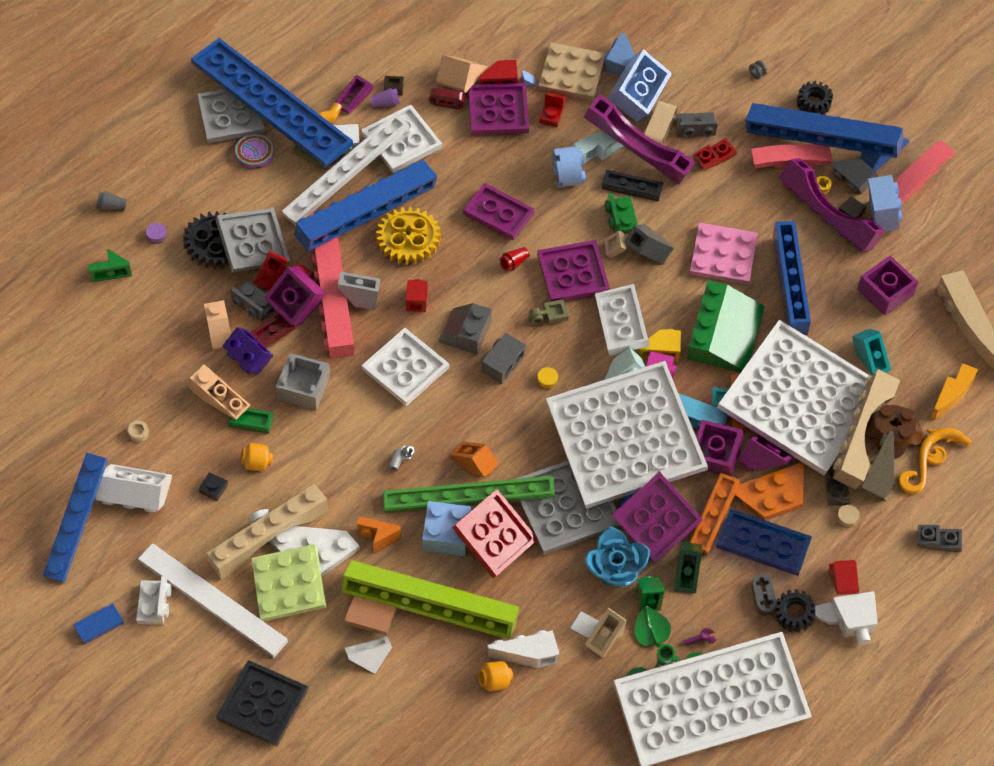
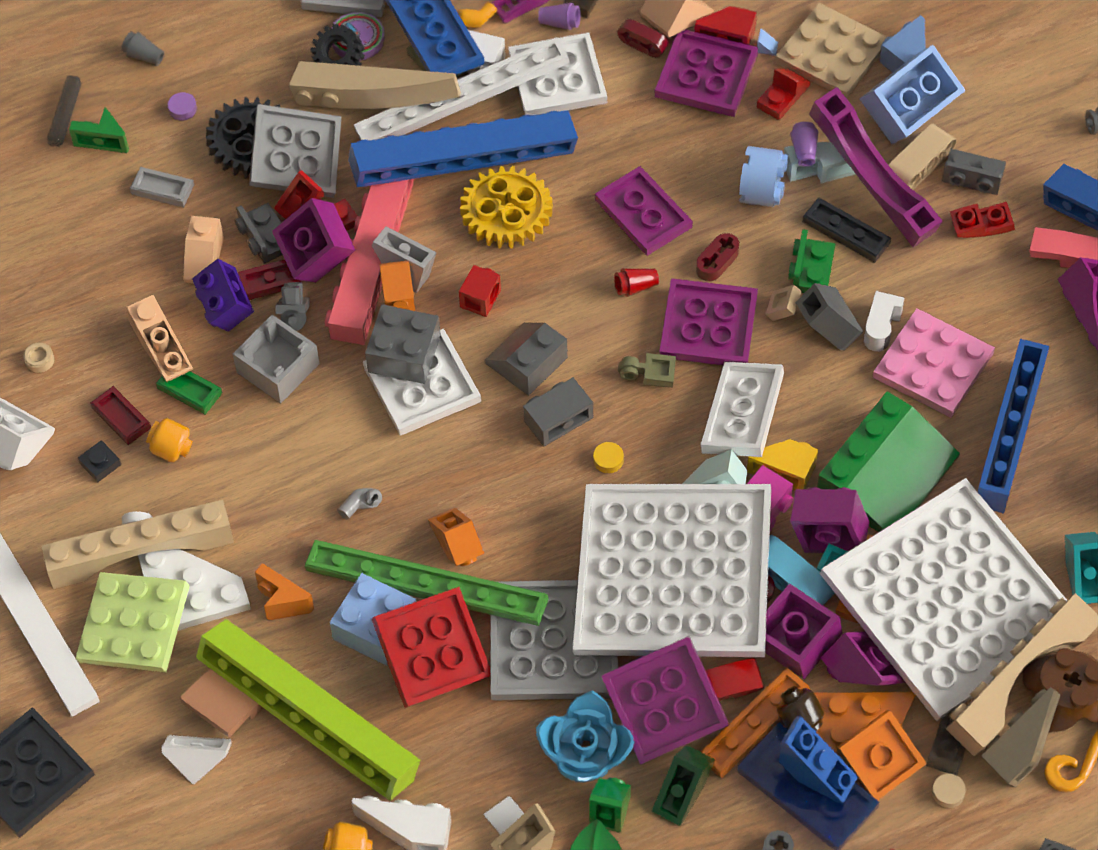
camera: 25 degrees right, 0 degrees up
(75, 260) = (64, 111): none -> clear smoke axle
(167, 291) = (162, 187): none -> light grey tile
(212, 452) = (120, 415): none -> dark red tile
(253, 175) = (334, 35): none -> black tyre
(282, 183) = (368, 86): none -> tan slope
(298, 342) = (293, 305): none -> dark grey hips
(365, 312) = (397, 285): none -> orange slope
(386, 345) = (403, 344): none -> dark grey brick
(555, 226) = (713, 253): none -> dark red beam
(586, 134) = (804, 139): none -> medium lavender cone
(679, 231) = (878, 326): none -> white leg
(693, 489) = (735, 679): none -> red slope
(708, 371) = (828, 518): none -> magenta brick
(742, 496) = (800, 703): none -> dark brown head
(766, 525) = (814, 762): none -> blue slope
(801, 507) = (881, 755): none -> orange plate

